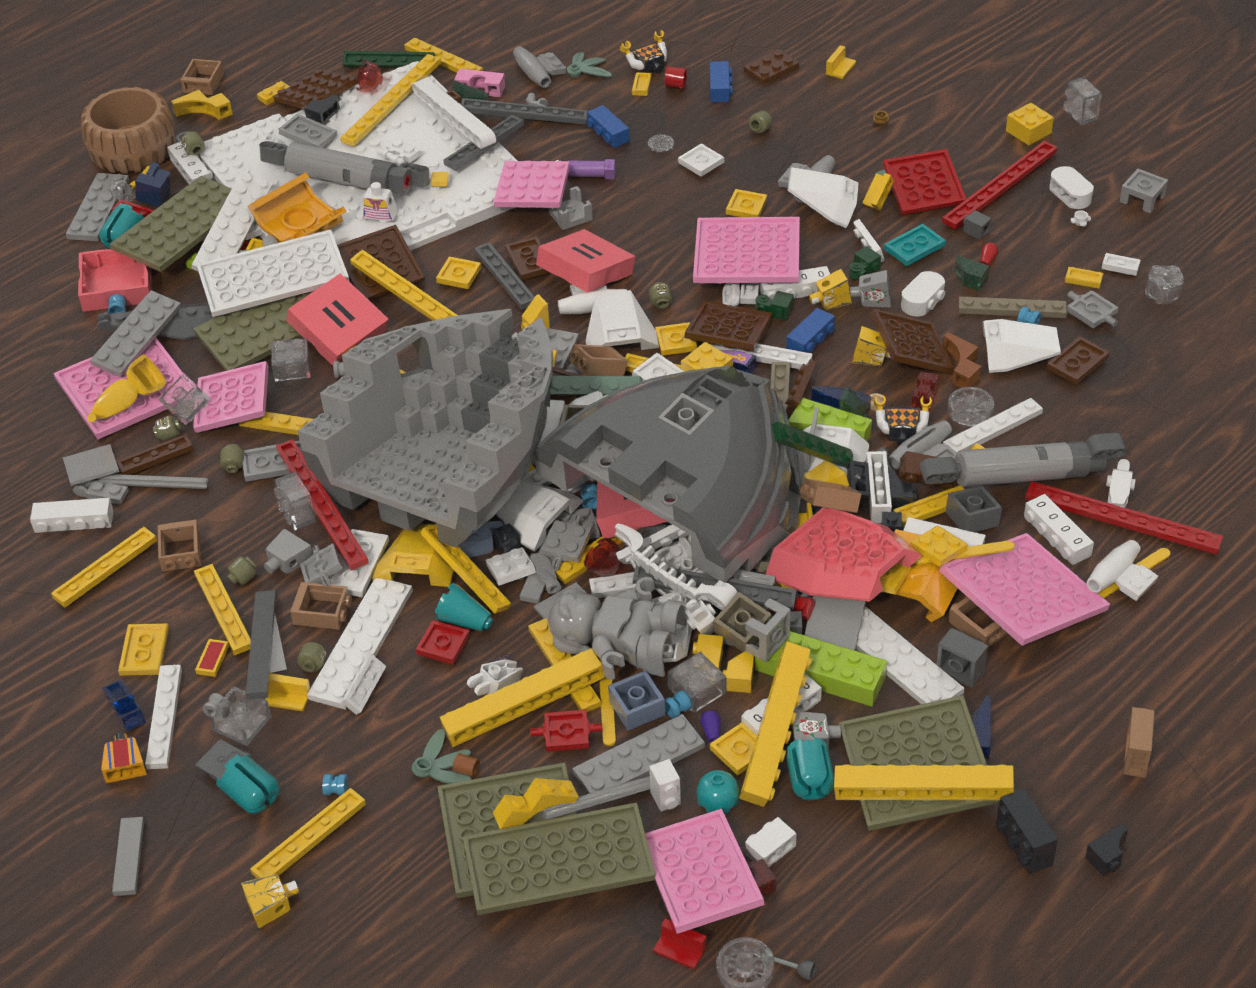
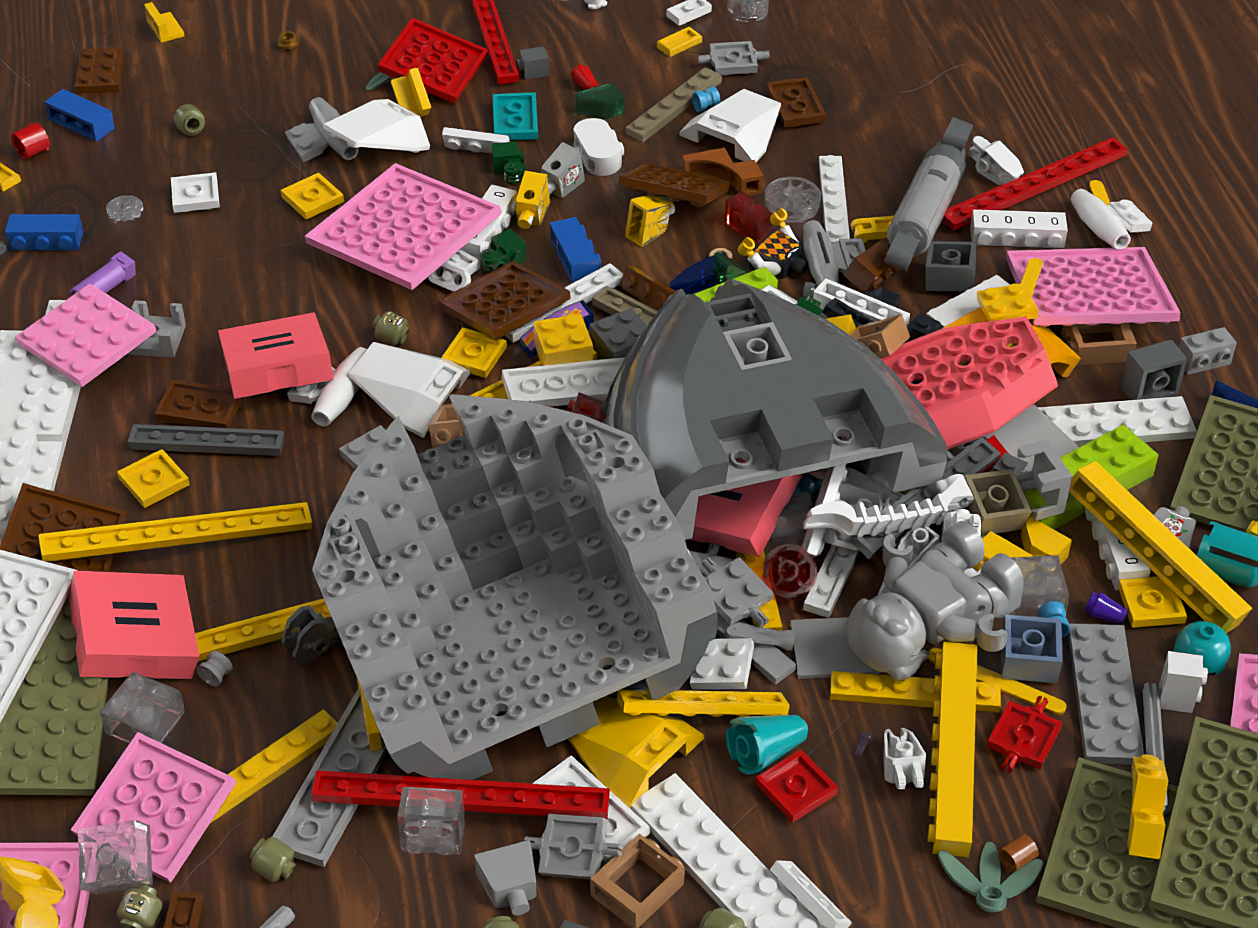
camera: 60 degrees left, 0 degrees up
(535, 310) = (323, 442): yellow slope -> none
(926, 507) = (913, 288): yellow plate -> none
(1023, 681) = (1207, 350): none -> light grey brick

